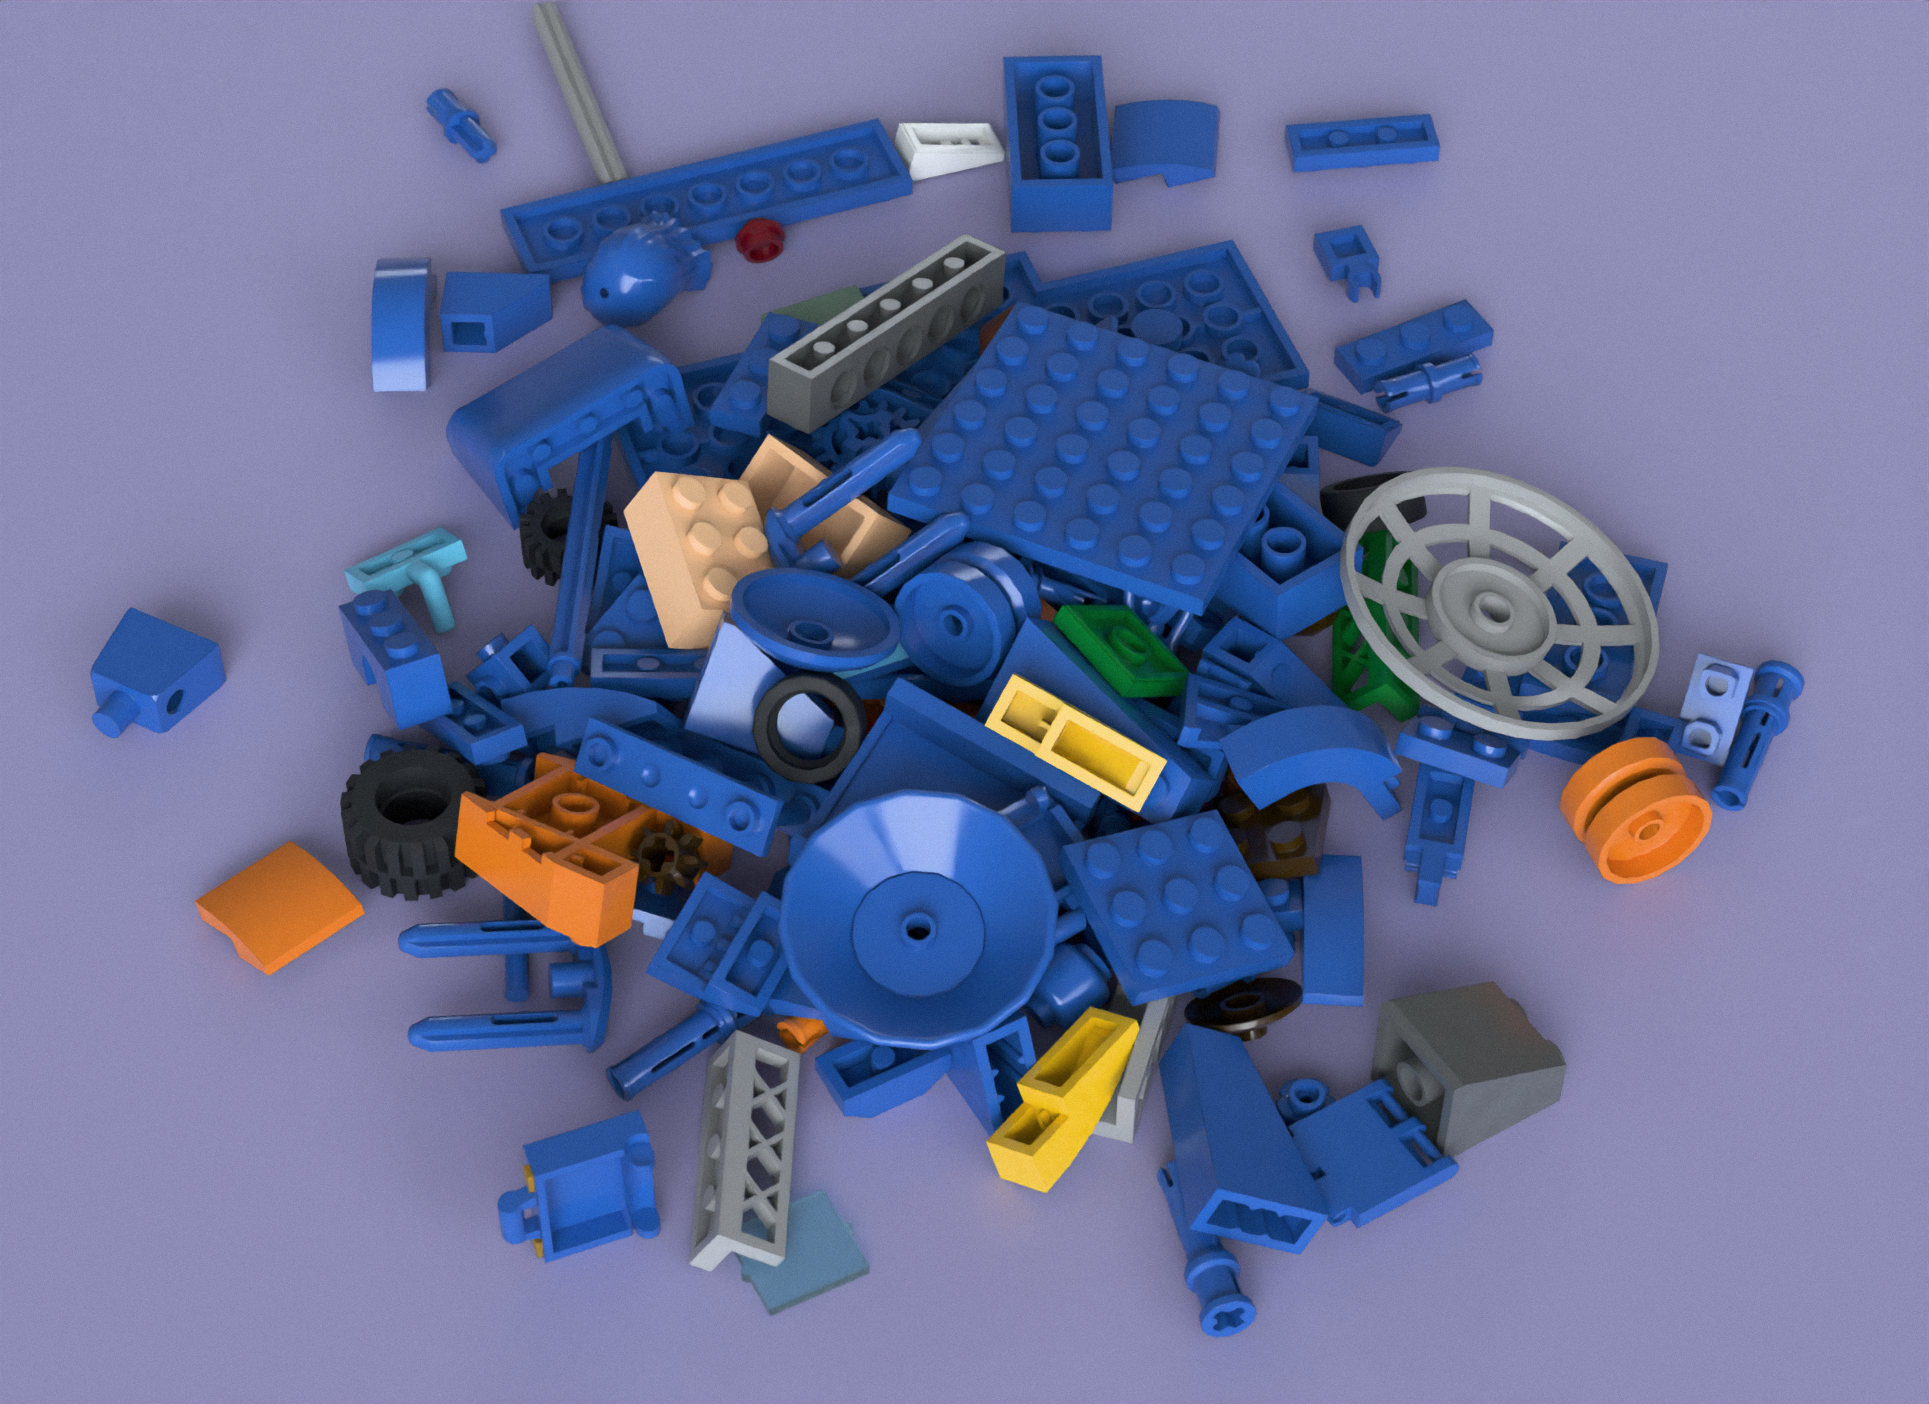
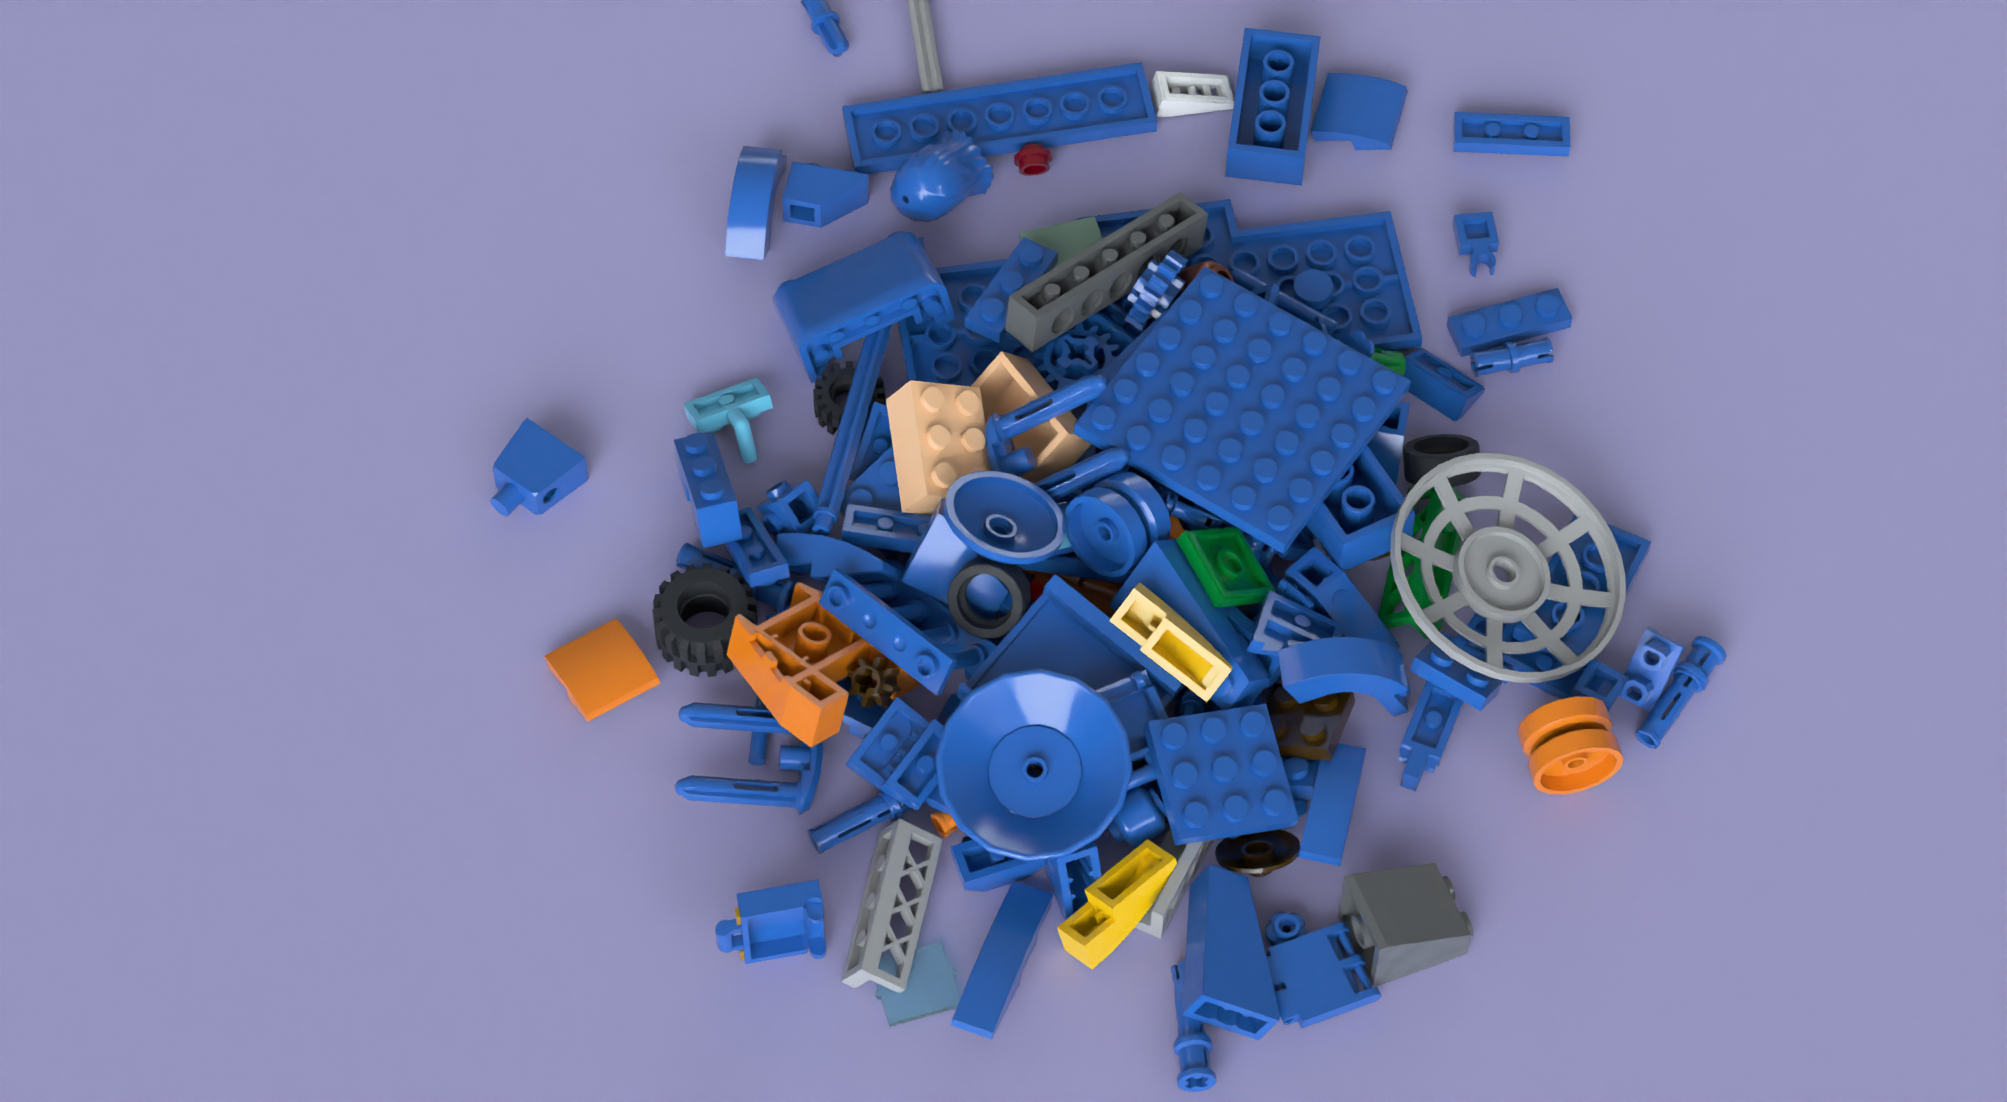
camera: 10 degrees right, 10 degrees up
(916, 1199) = (1002, 960): none -> blue slope
(956, 344) = (1156, 289): none -> blue gear

